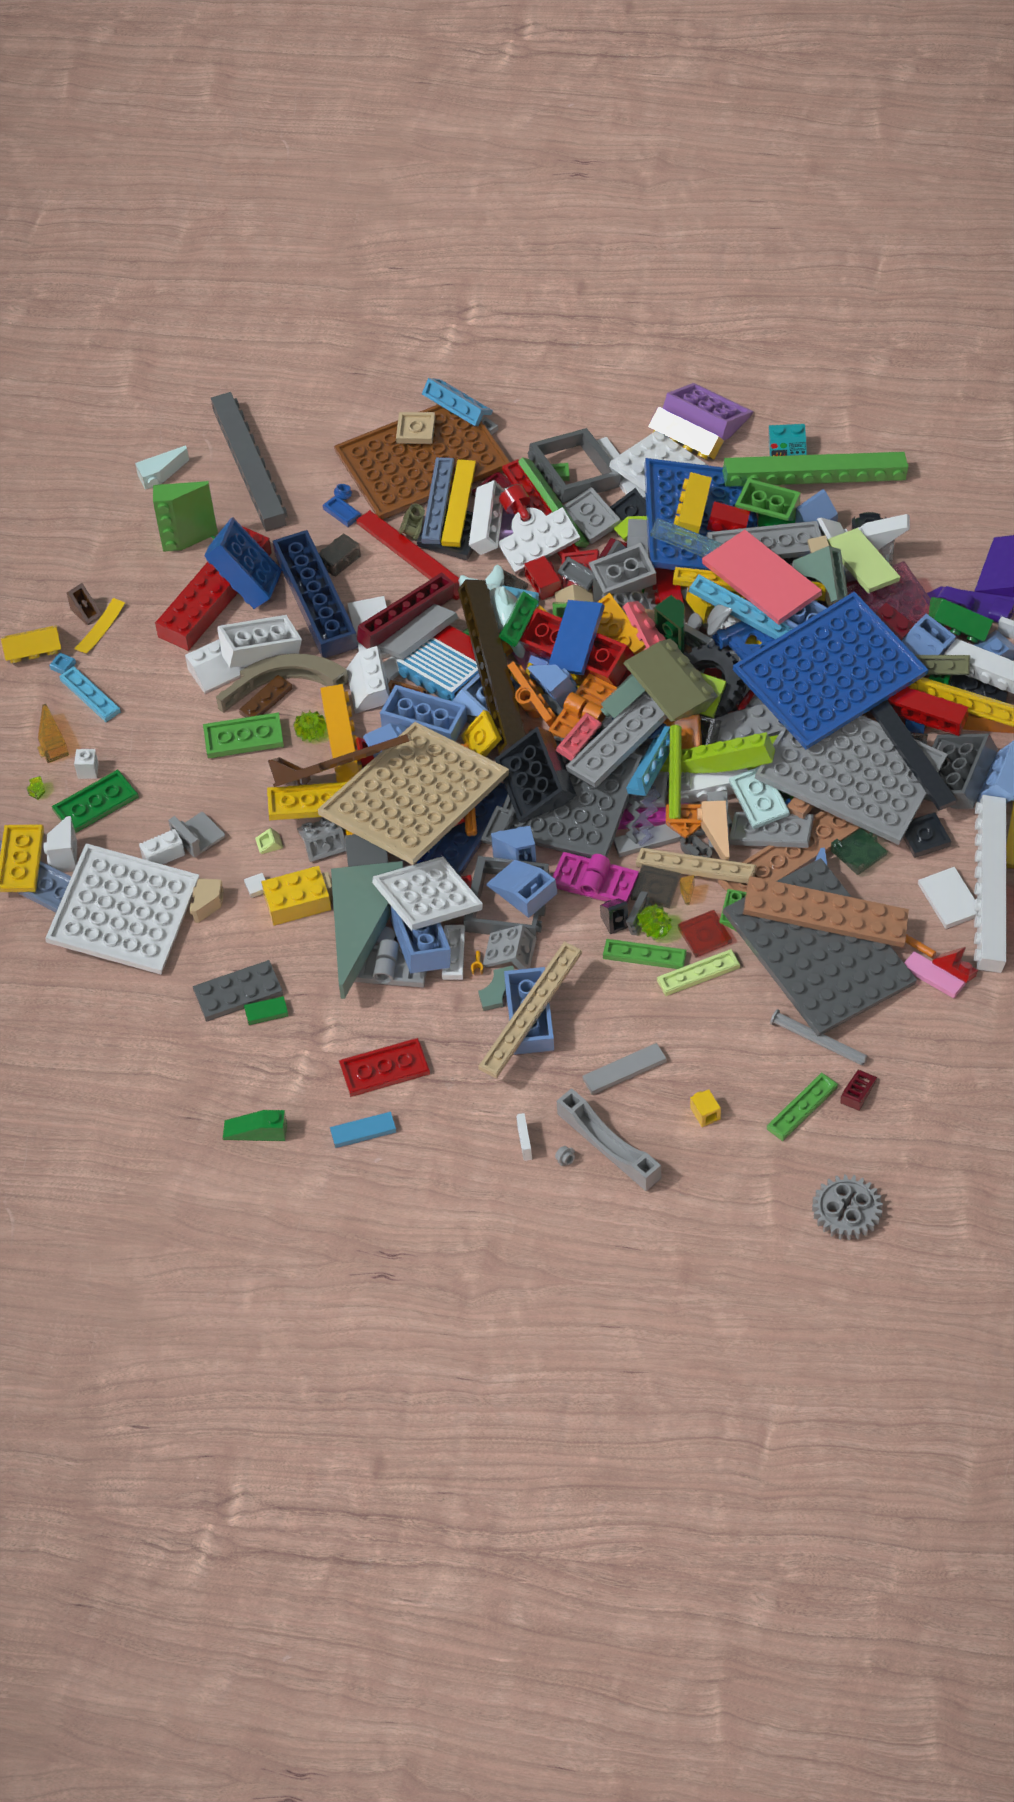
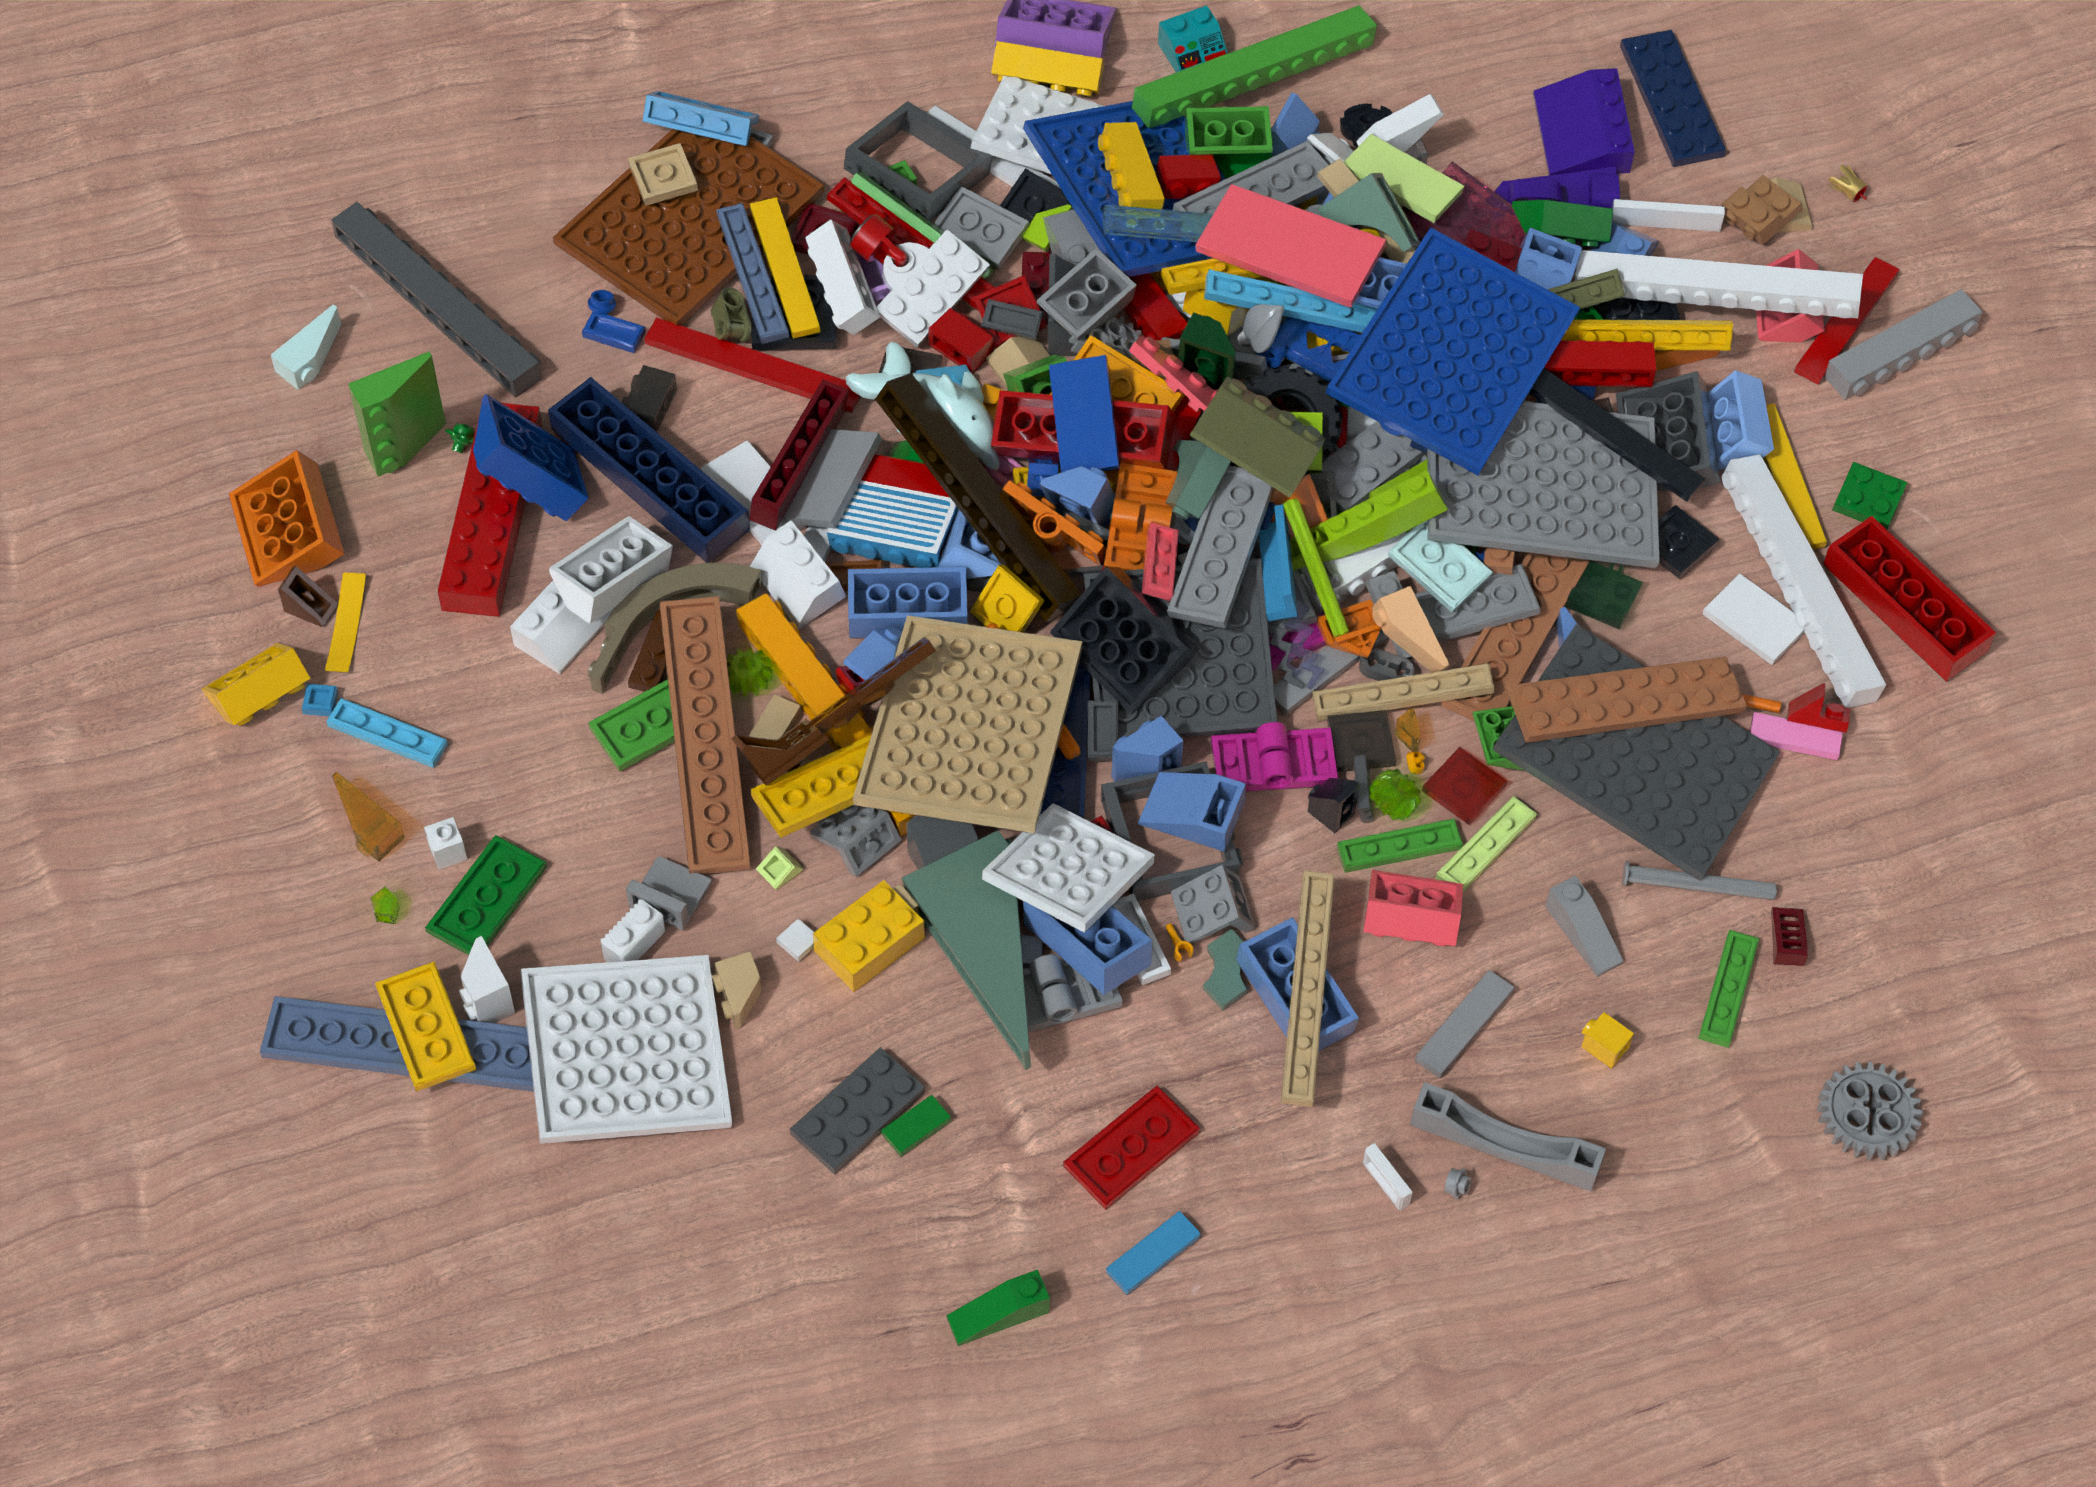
camera: 30 degrees left, 5 degrees up
(97, 558) = (286, 520): none -> orange slope
(265, 742) = (703, 736): none -> nougat plate
(312, 757) = (776, 718): none -> tan tile
(518, 619) = (983, 415): green tile -> none
(628, 991) = (1413, 908): none -> coral slope
(682, 910) = (1415, 762): none -> light orange rock
(730, 1038) = (1583, 925): none -> light grey slope

